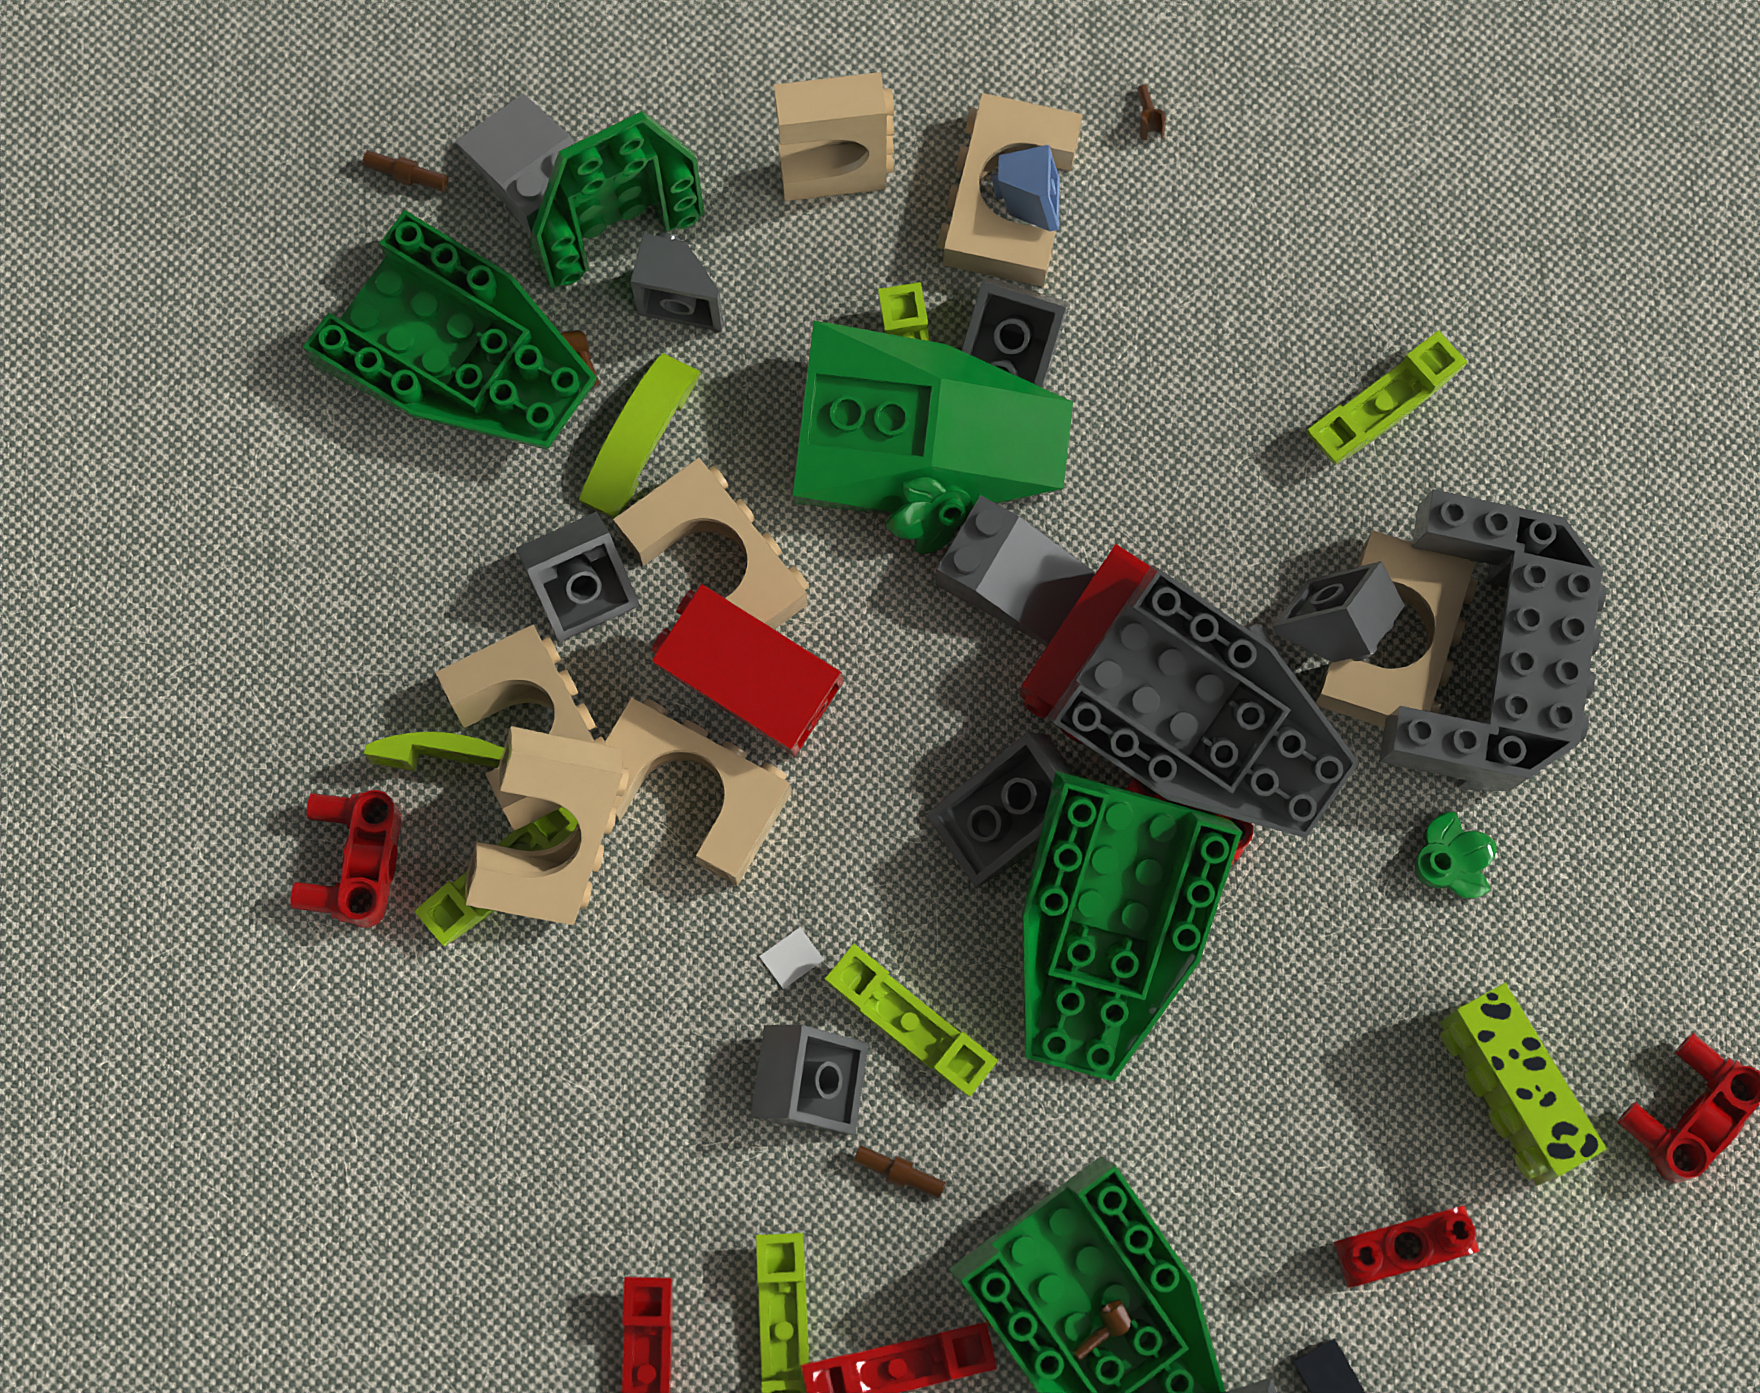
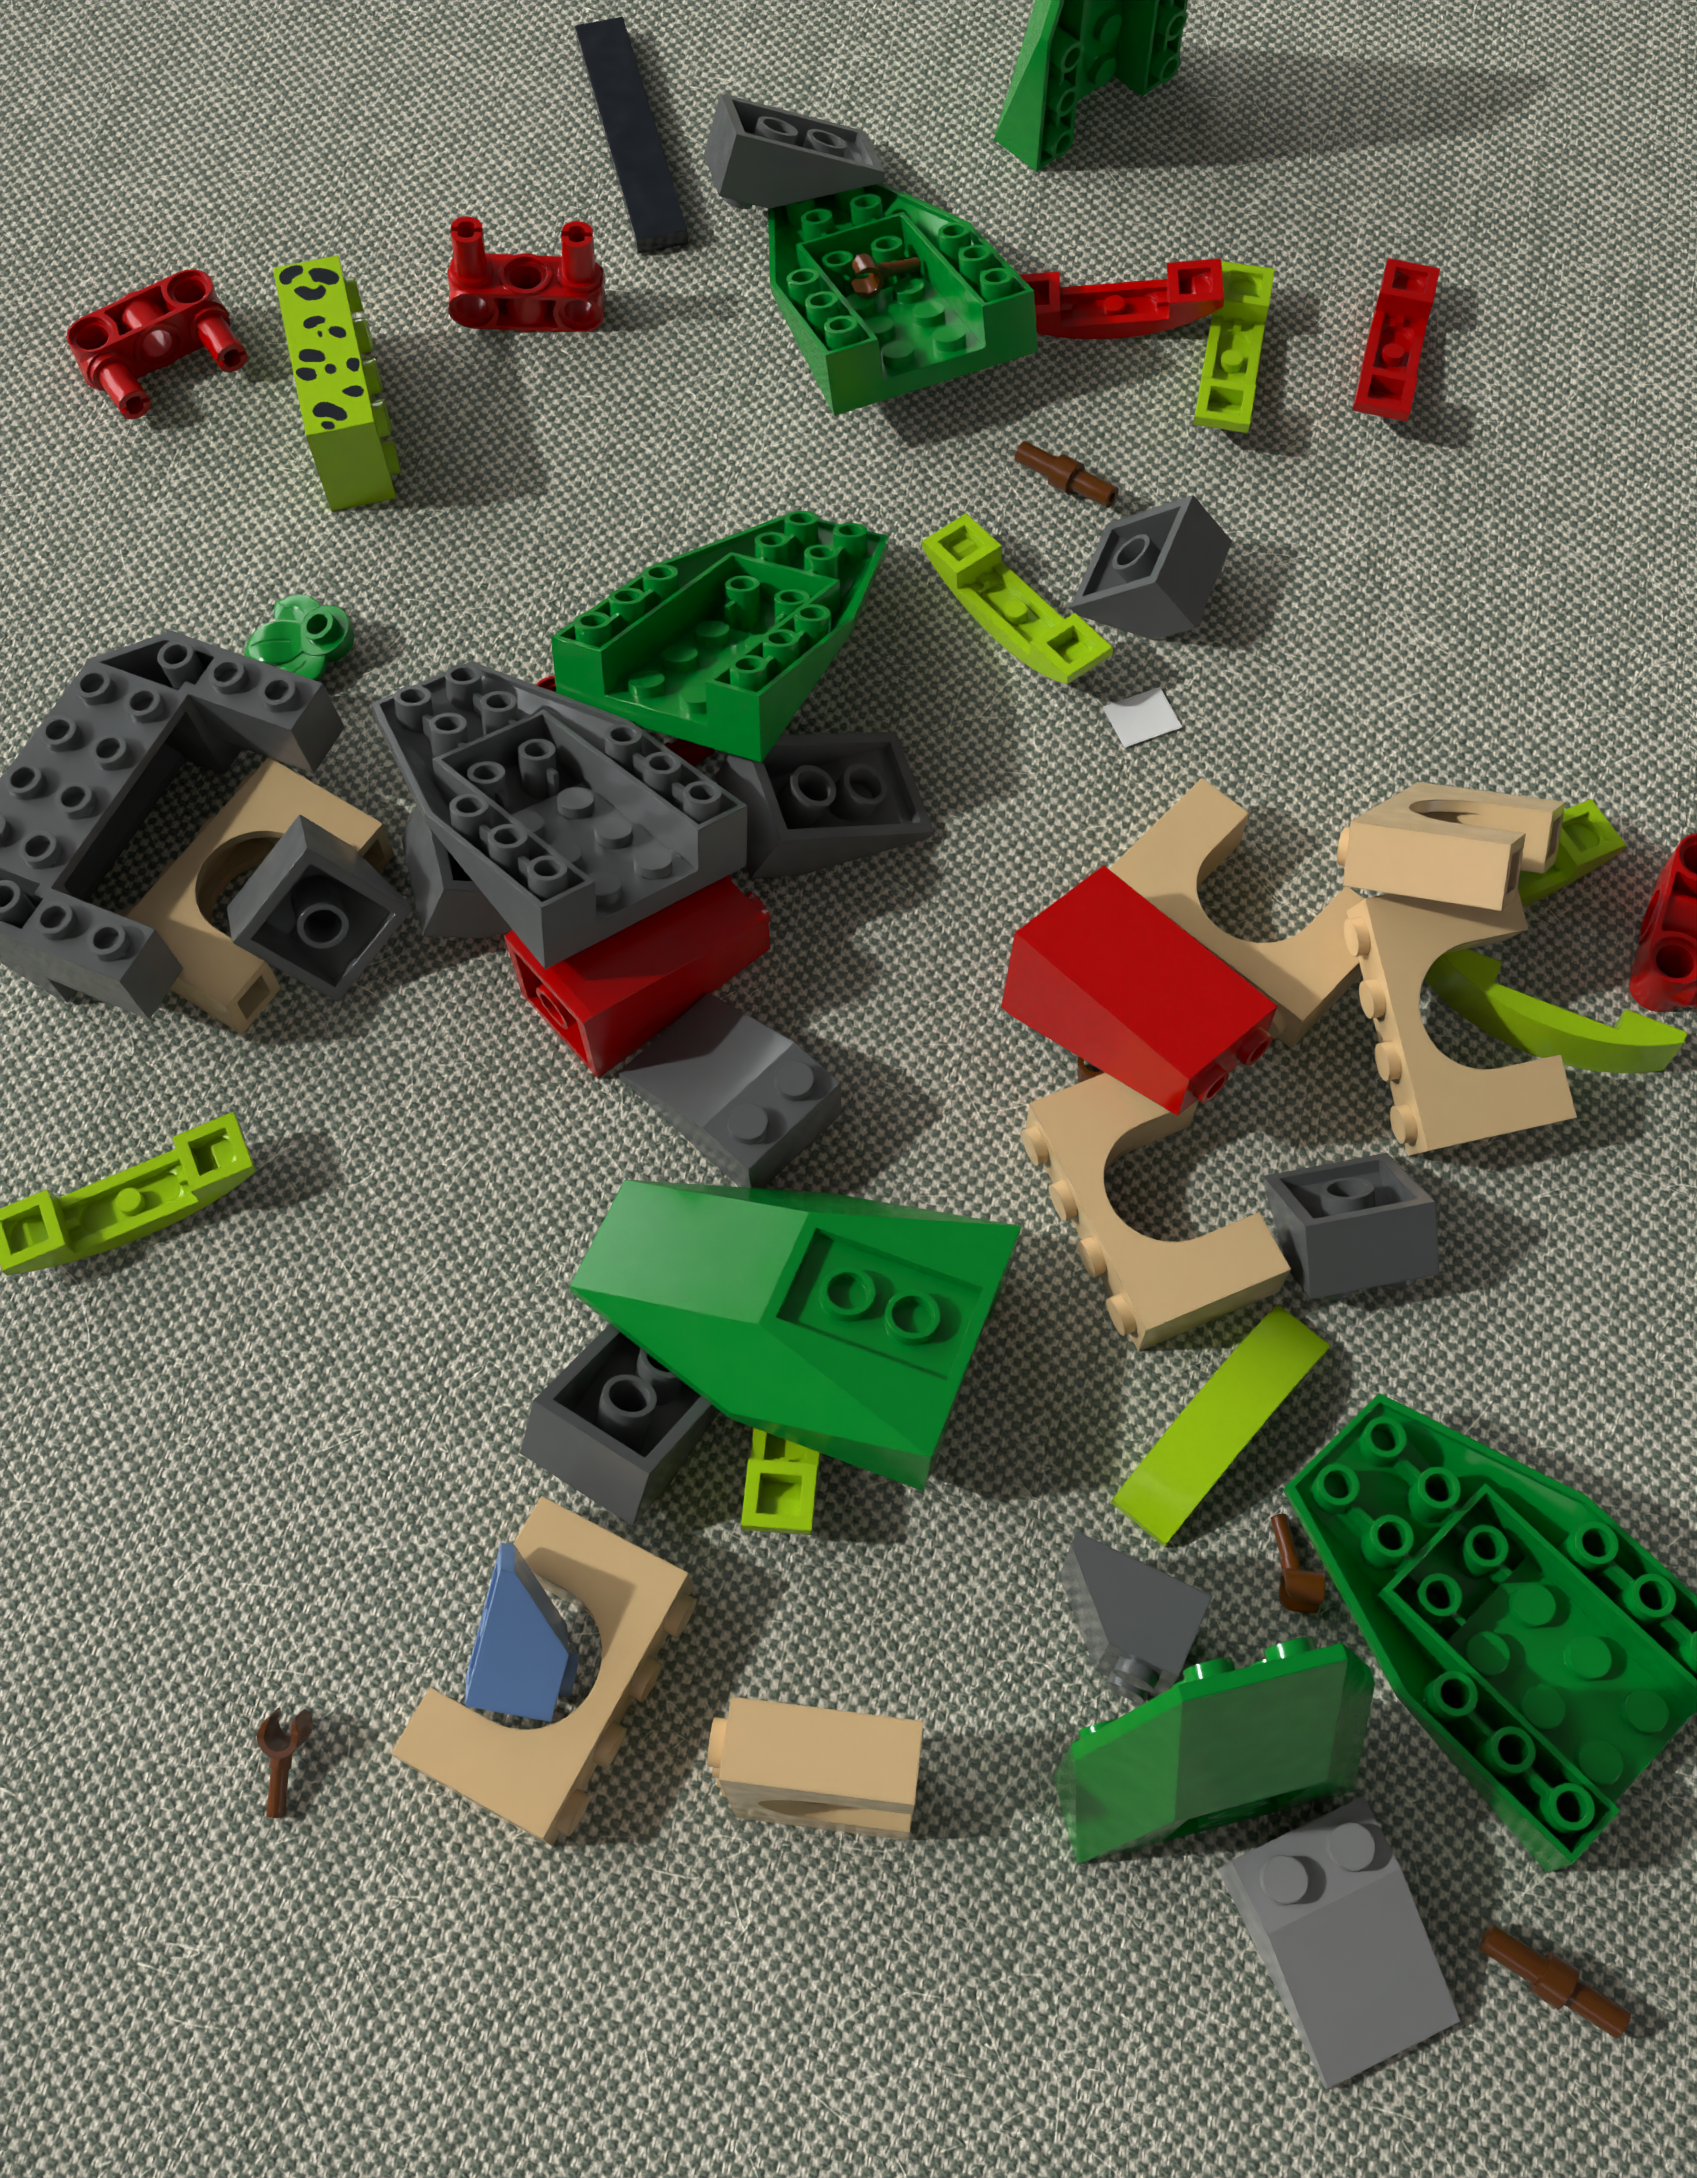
camera: 165 degrees left, 10 degrees down
(926, 514) = (807, 1177): green plate -> none

